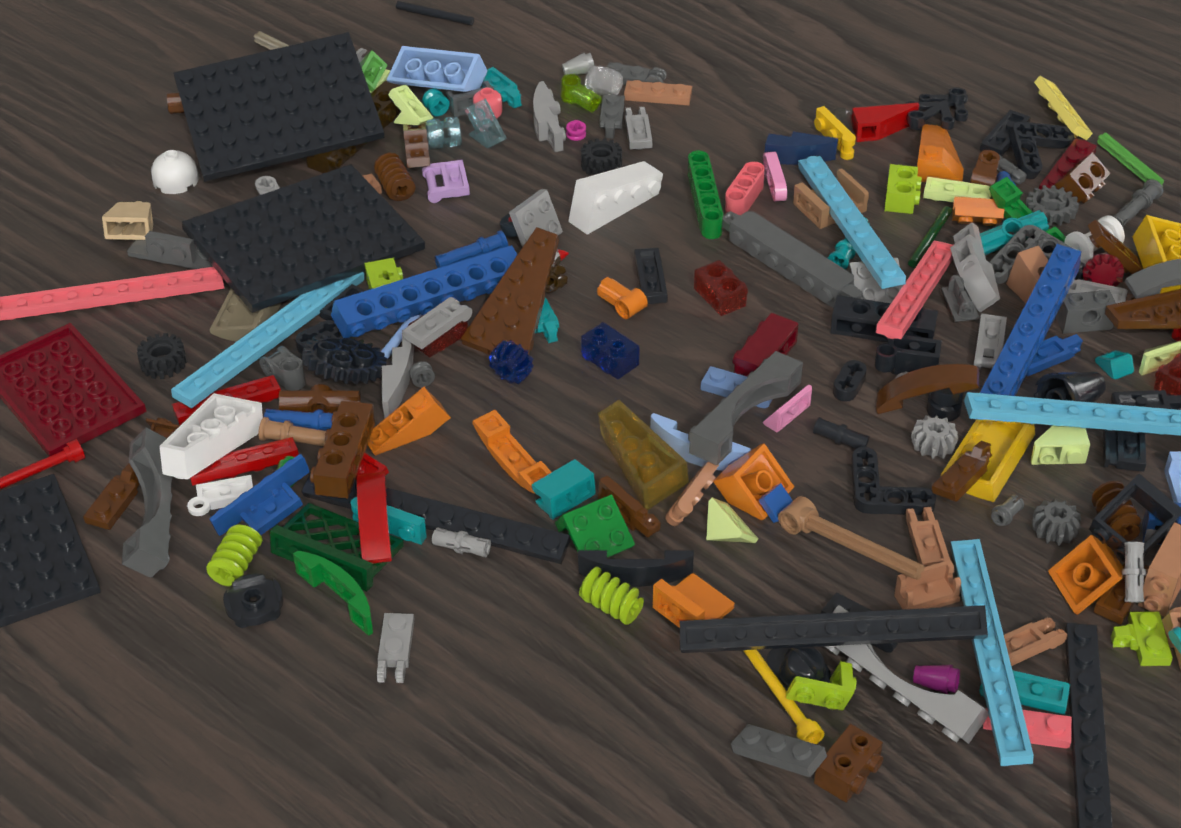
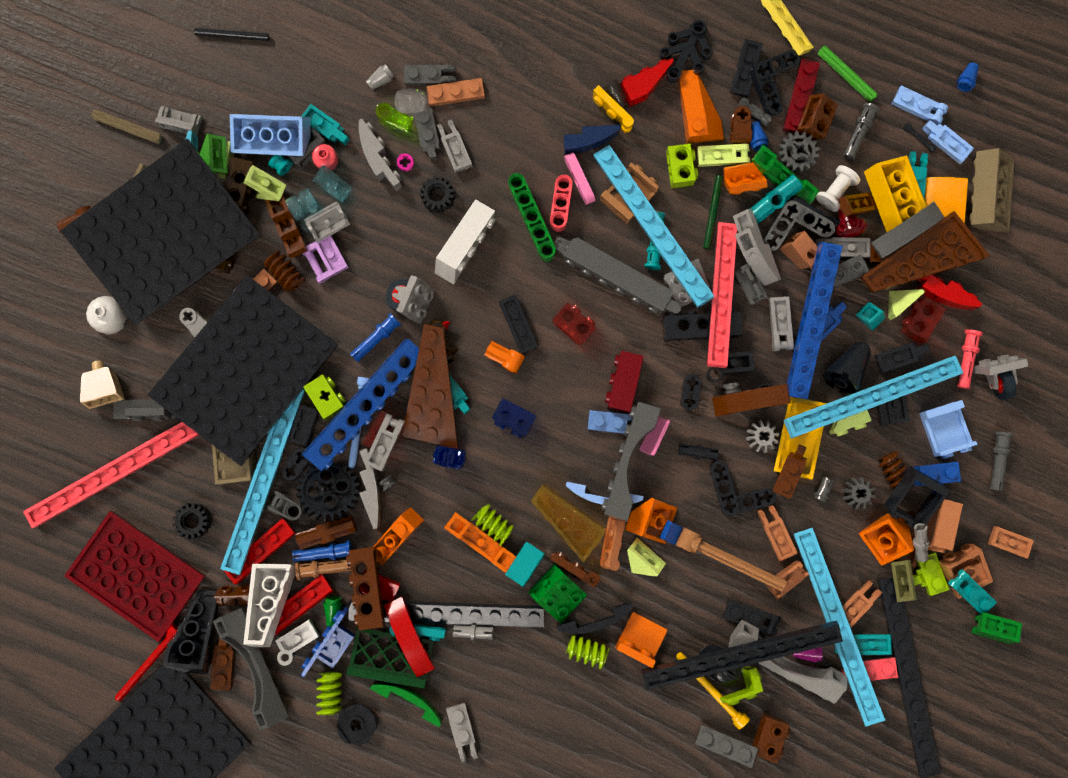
camera: 15 degrees left, 40 degrees up
(92, 463) = (194, 640): none -> black wedge
(464, 149) = (327, 221): none -> light grey hinge
(538, 437) = (493, 524): none -> lime piece
(1101, 619) = (903, 581): none -> olive slope

